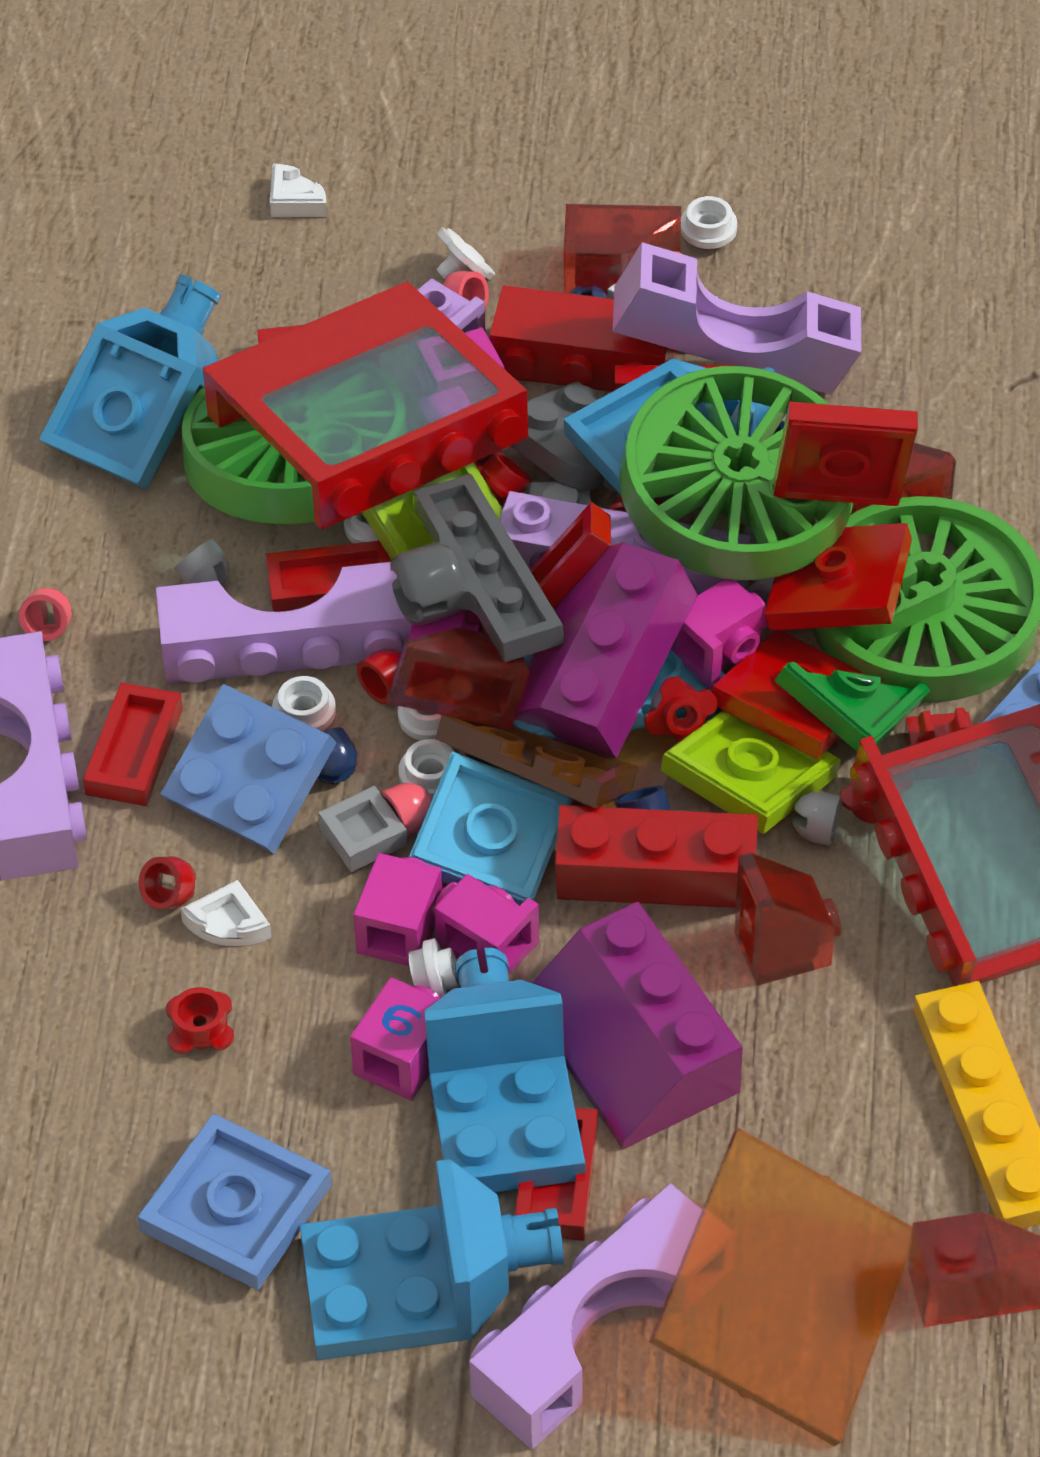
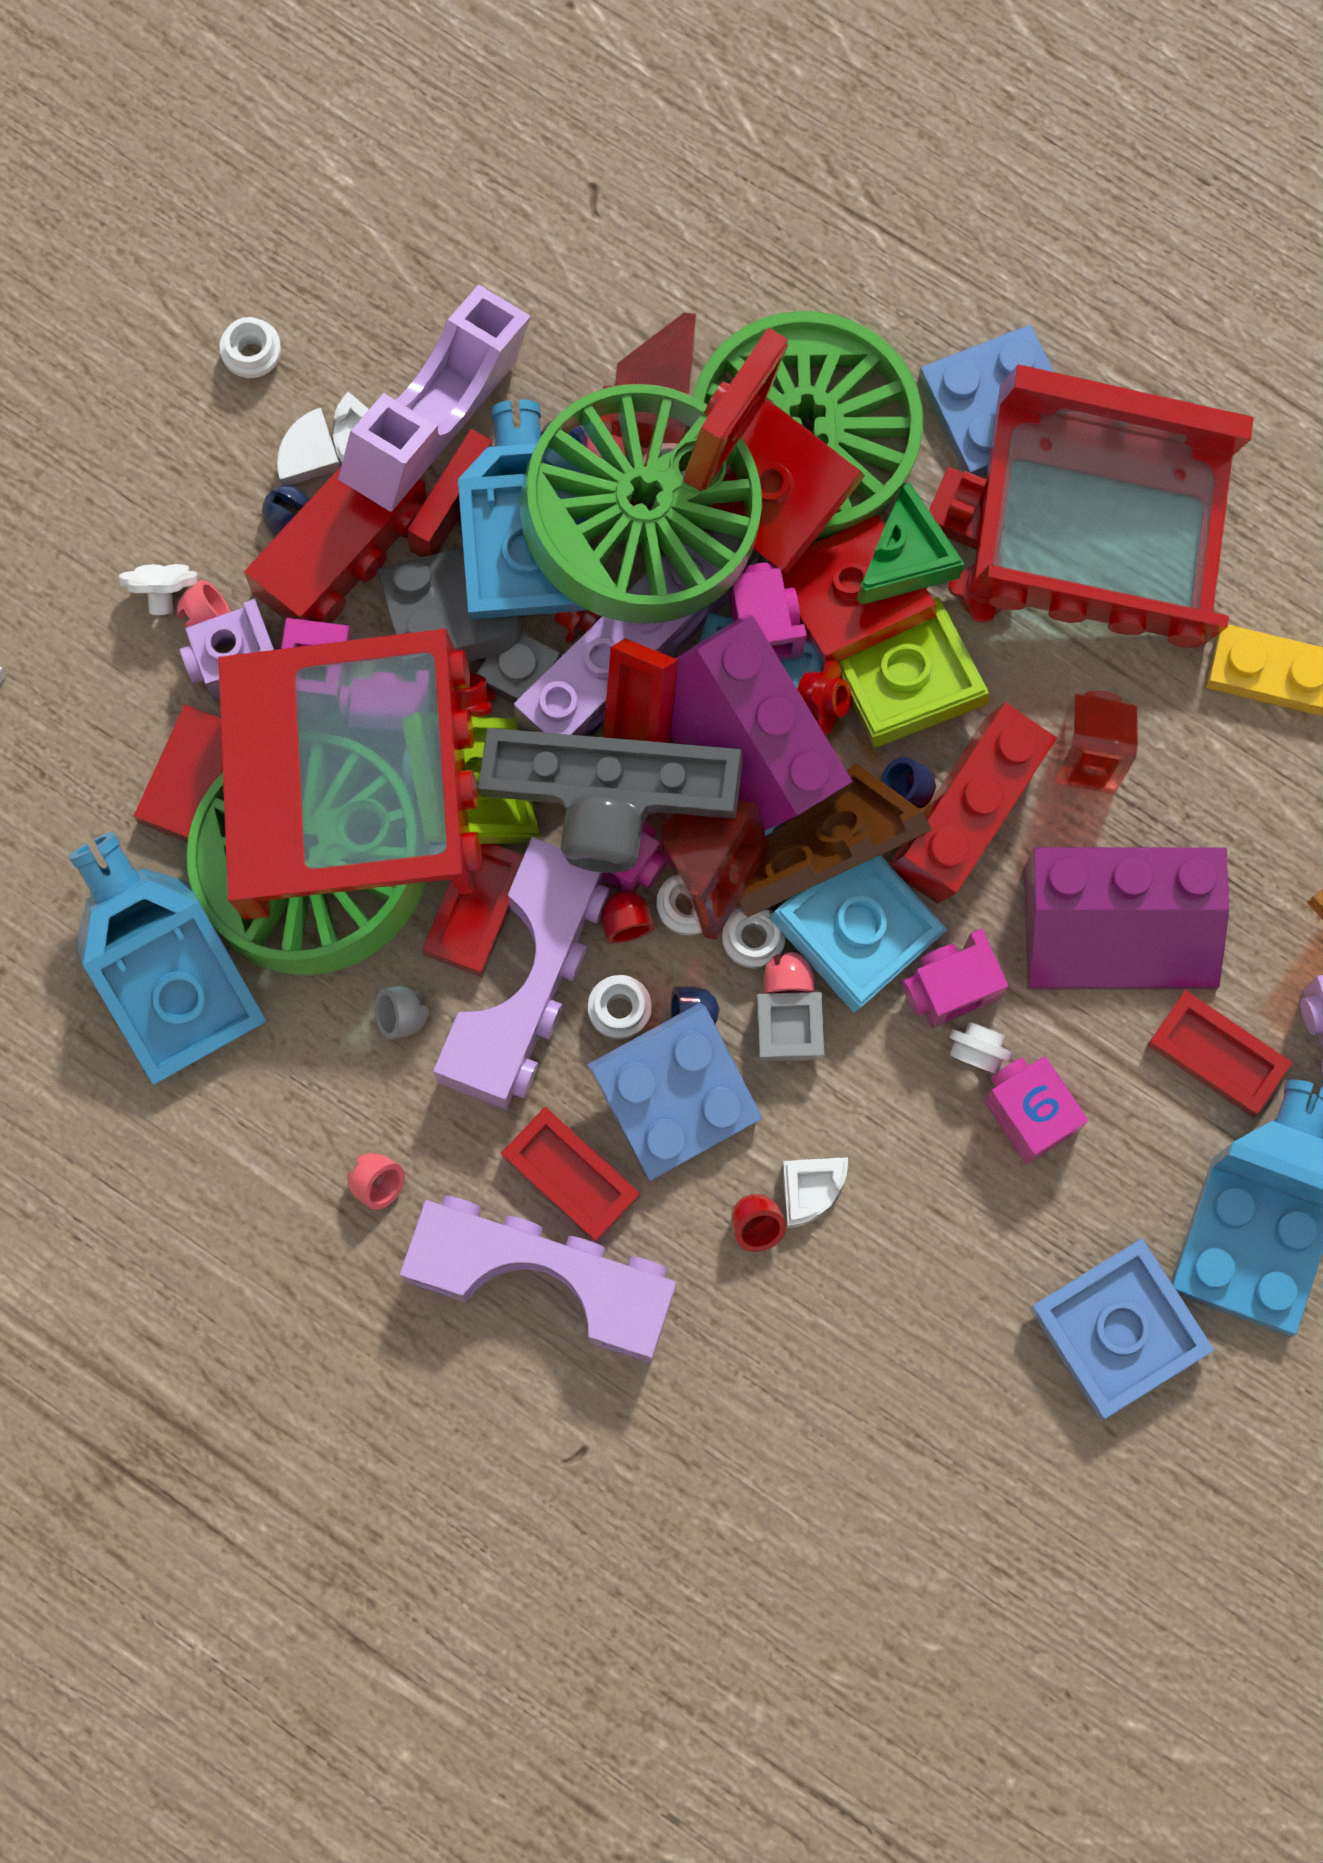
camera: 65 degrees left, 25 degrees up
(195, 1006) = (932, 1261): red plate -> none
(396, 908) = (898, 1040): dark pink brick -> none
(502, 1078) = (1129, 1054): dark azure plate -> none
(605, 238) = (232, 448): clear red slope -> none
(817, 817) = (991, 648): light grey hinge -> none

